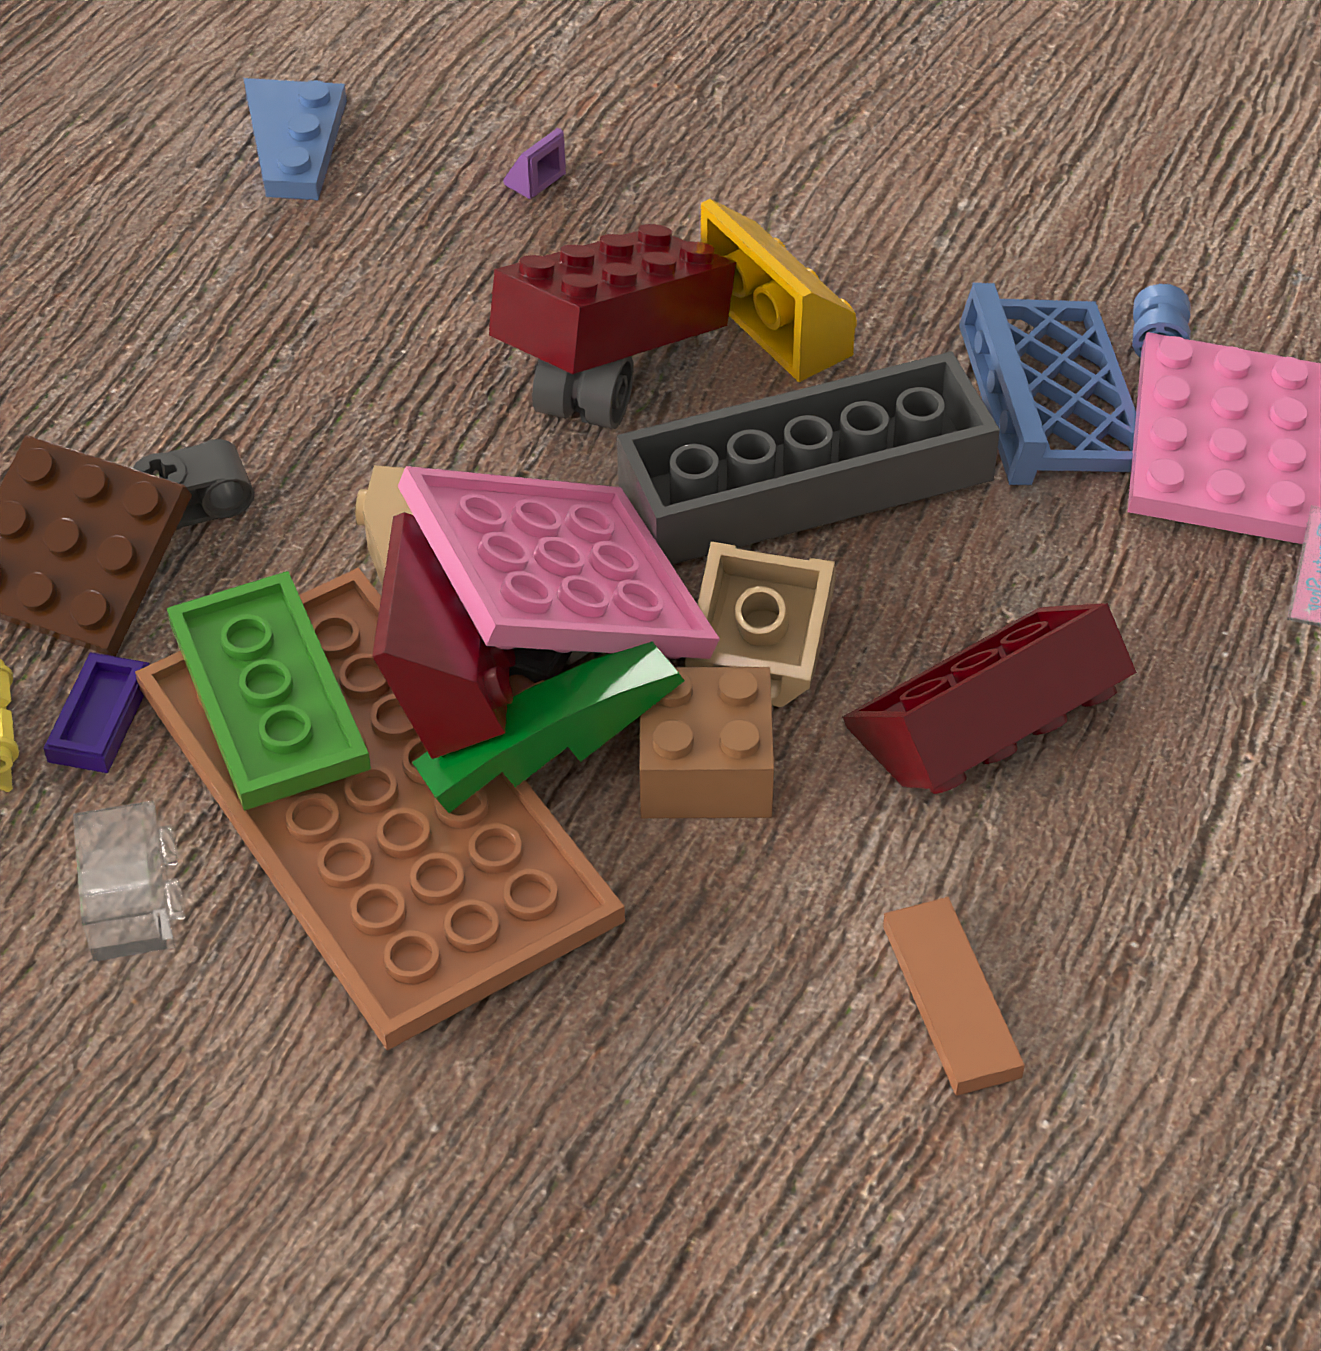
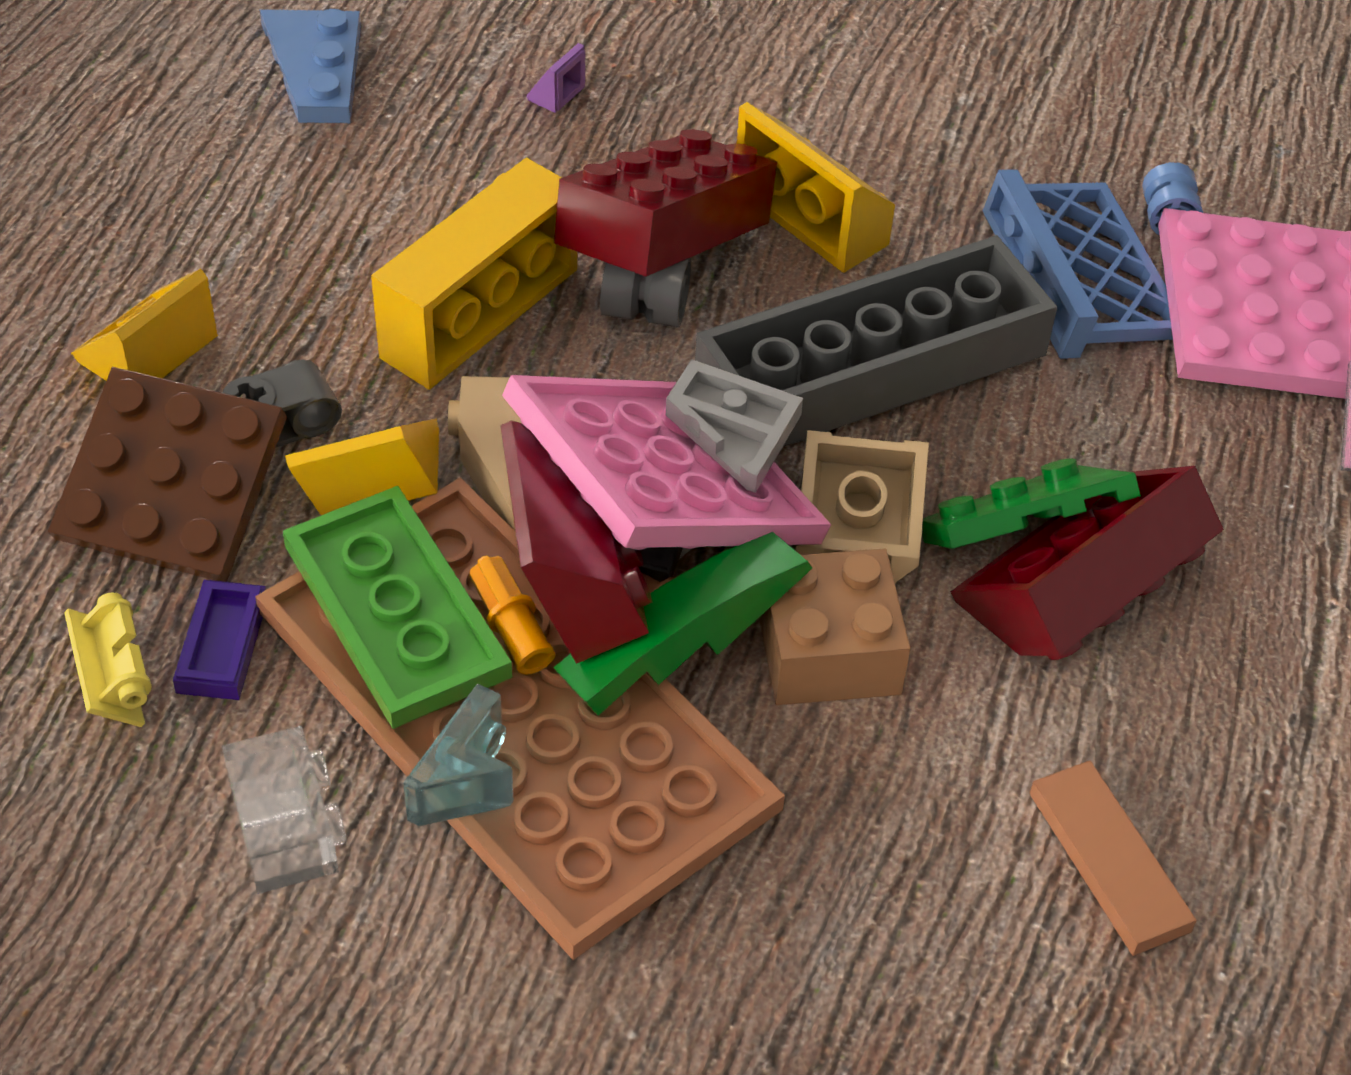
camera: 10 degrees left, 0 degrees up
(85, 404) = (155, 332): none -> yellow slope
(268, 545) = (369, 465): none -> yellow slope
(298, 852) = (460, 767): none -> clear light blue slope
(379, 710) = (511, 615): none -> light orange axle
(402, 364) = (471, 275): none -> yellow brick
(634, 525) = (733, 419): none -> light grey wing
(965, 624) = (1005, 510): none -> green wing

